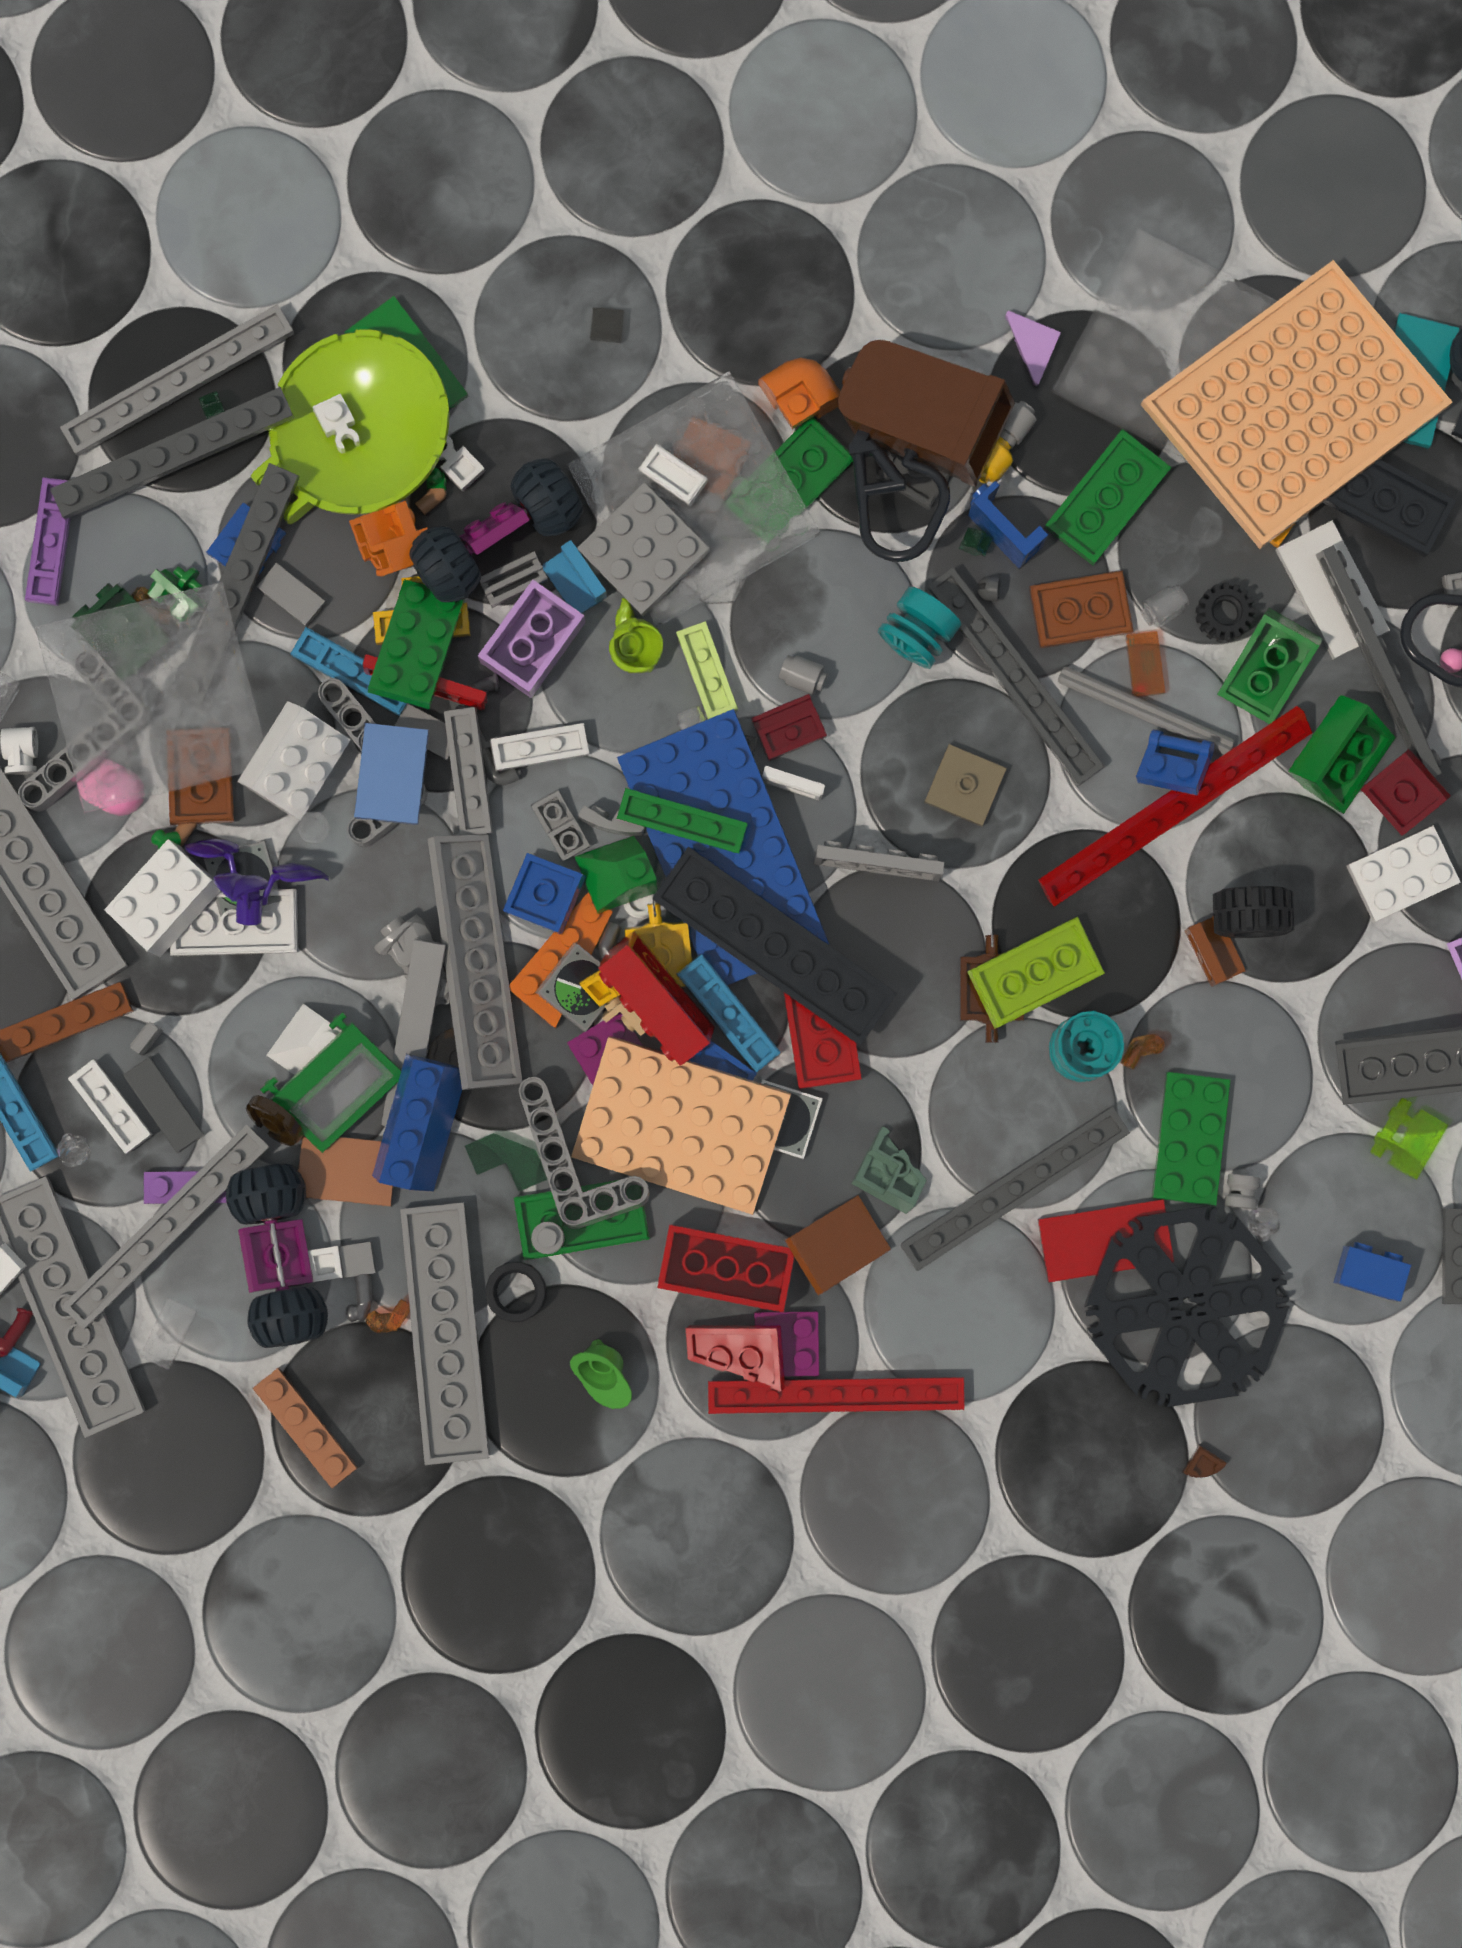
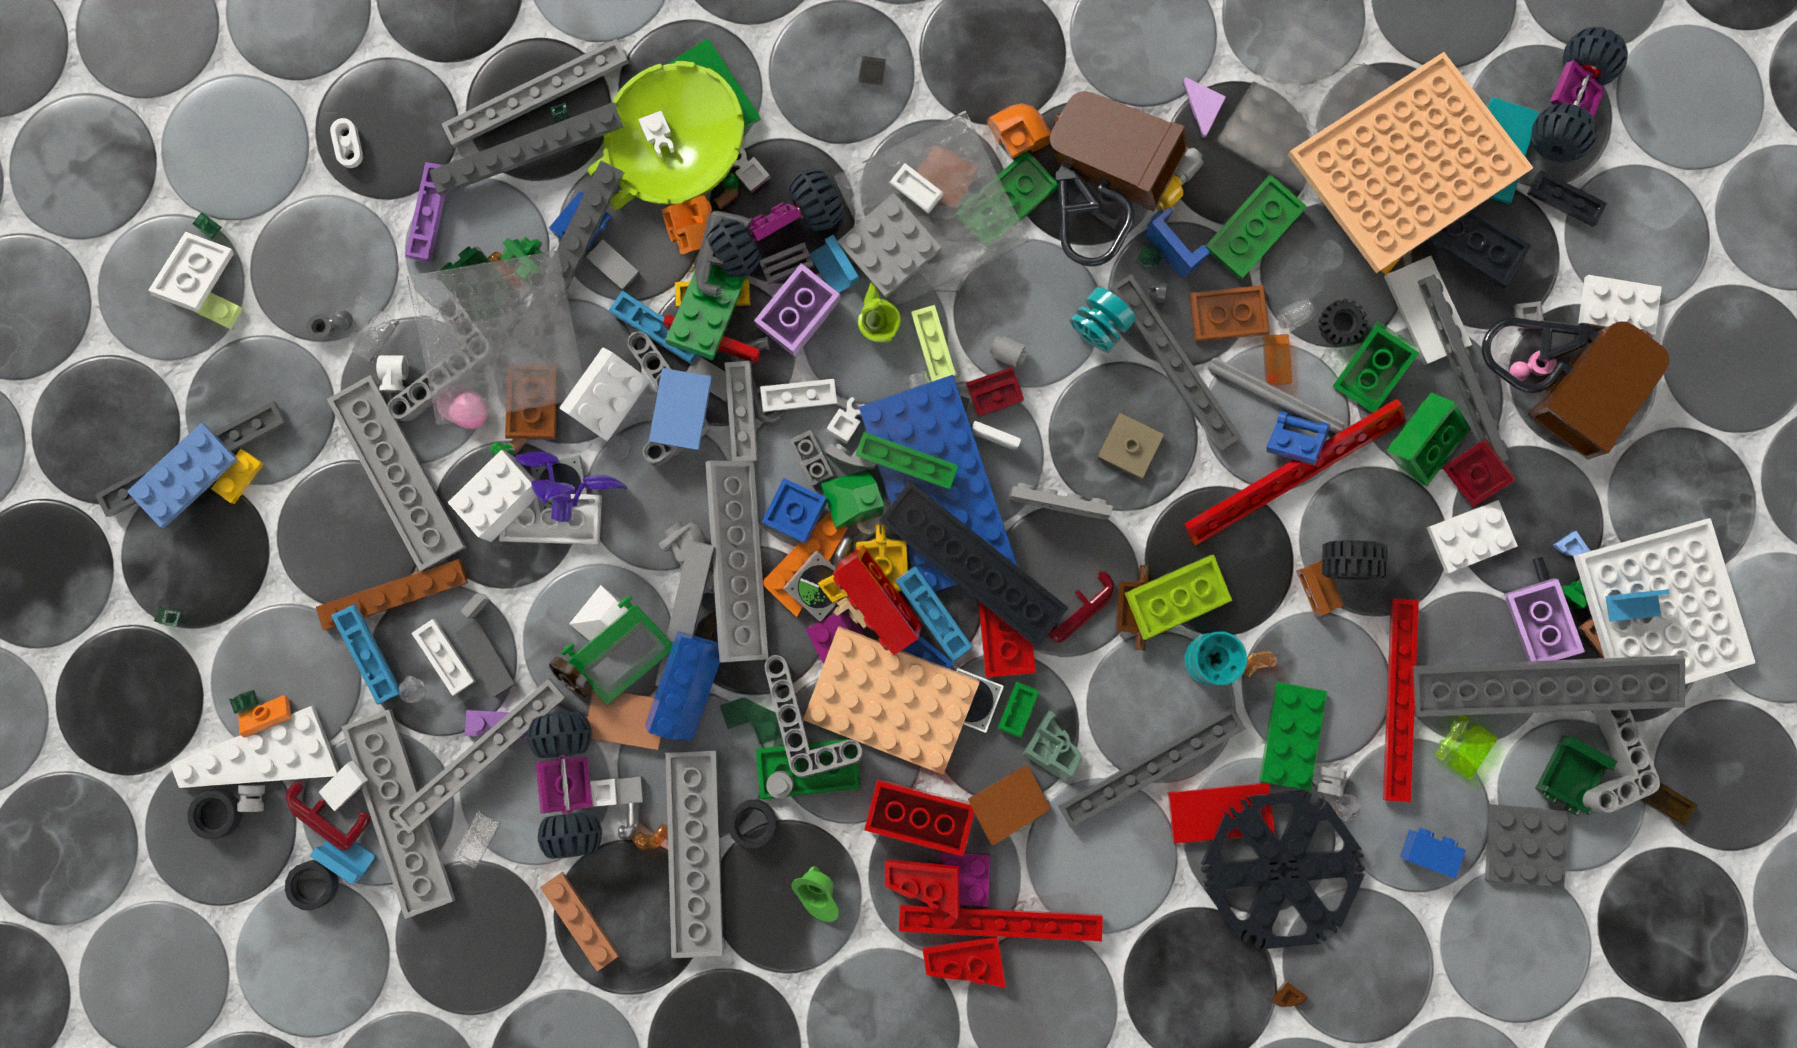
camera: 10 degrees right, 0 degrees up
(412, 576) = (706, 255): none -> dark grey piece
(600, 779) = (844, 423): none -> white plate
(797, 1445) = (967, 960): none -> red wing
(842, 1127) = (1018, 709): none -> green plate
(919, 999) = (1086, 611): none -> dark red piece
(1323, 1085) = (1400, 700): none -> red plate

